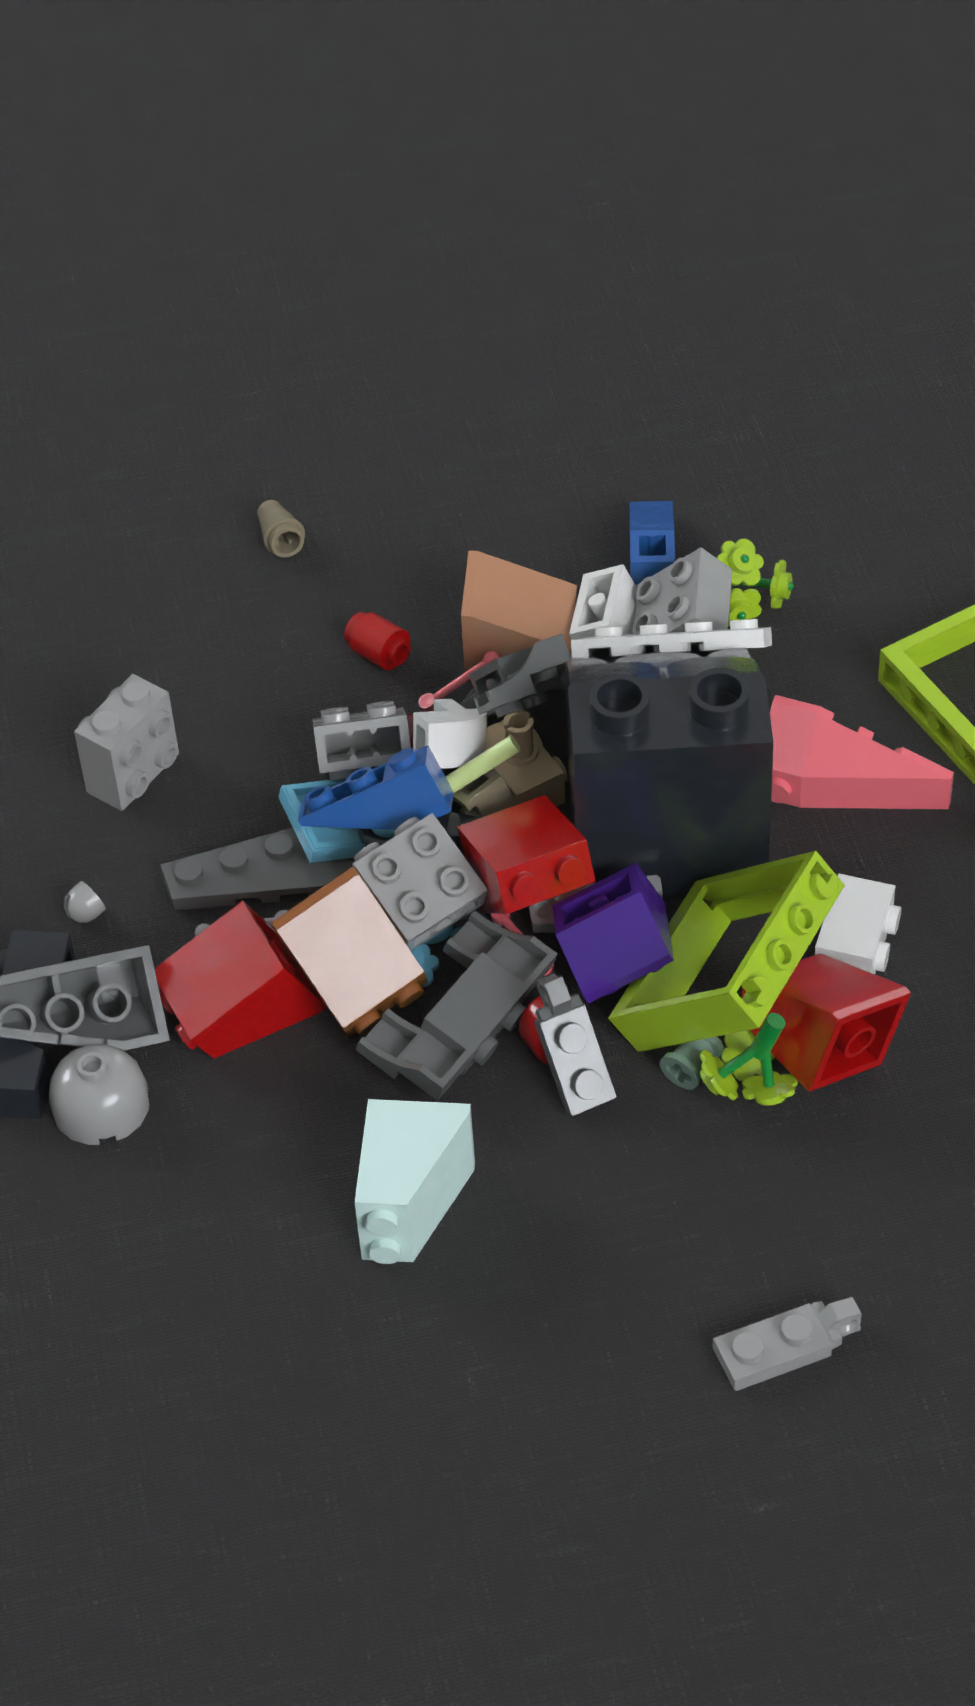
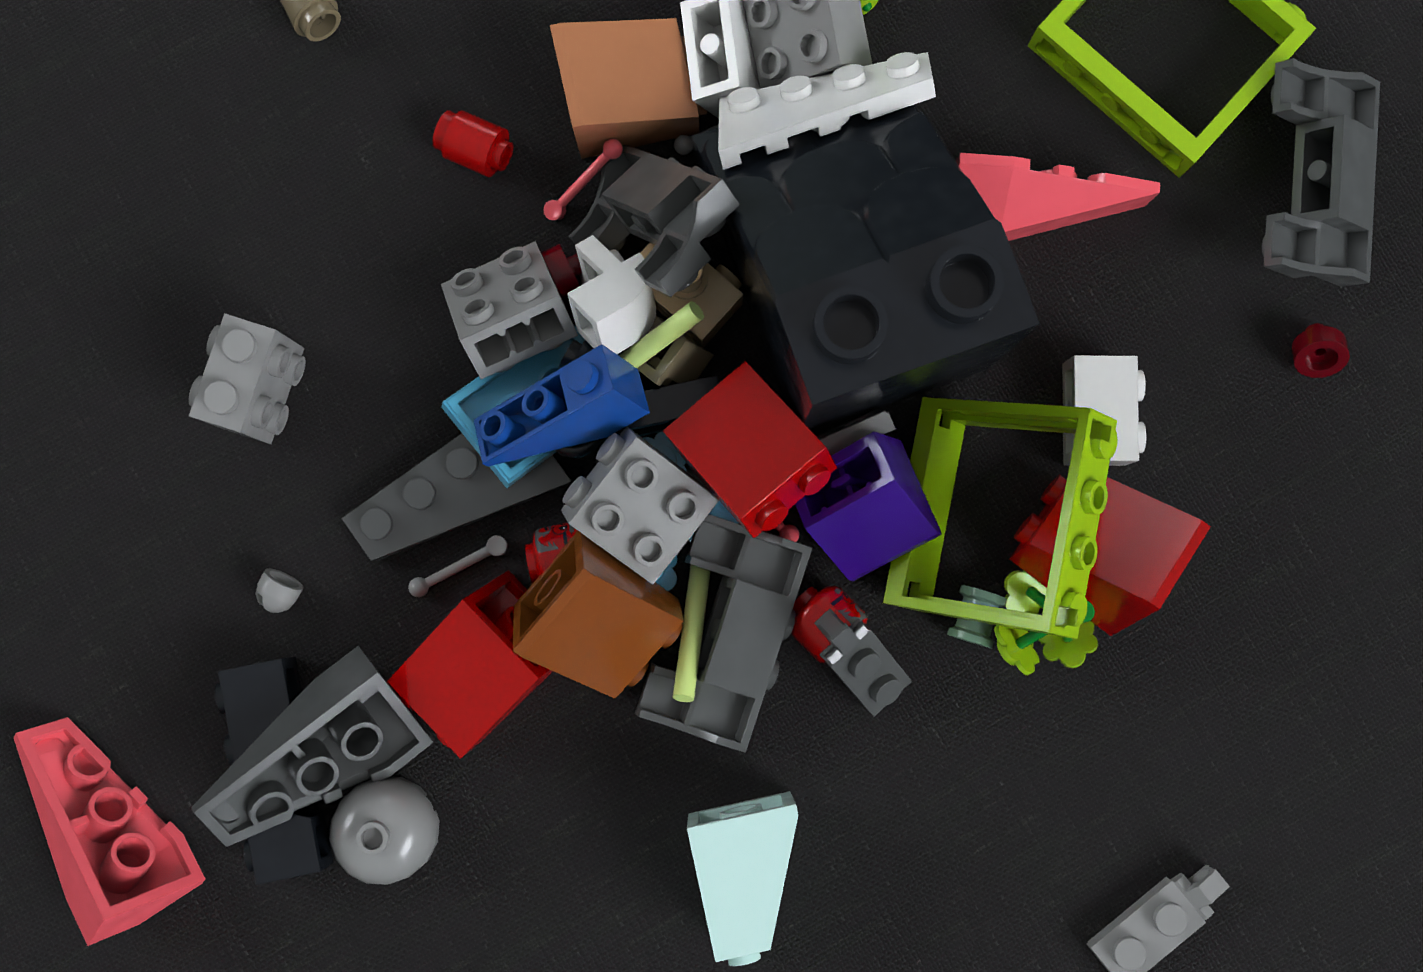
camera: 20 degrees left, 35 degrees up
(428, 999) = (691, 634): none -> yellowish green bar

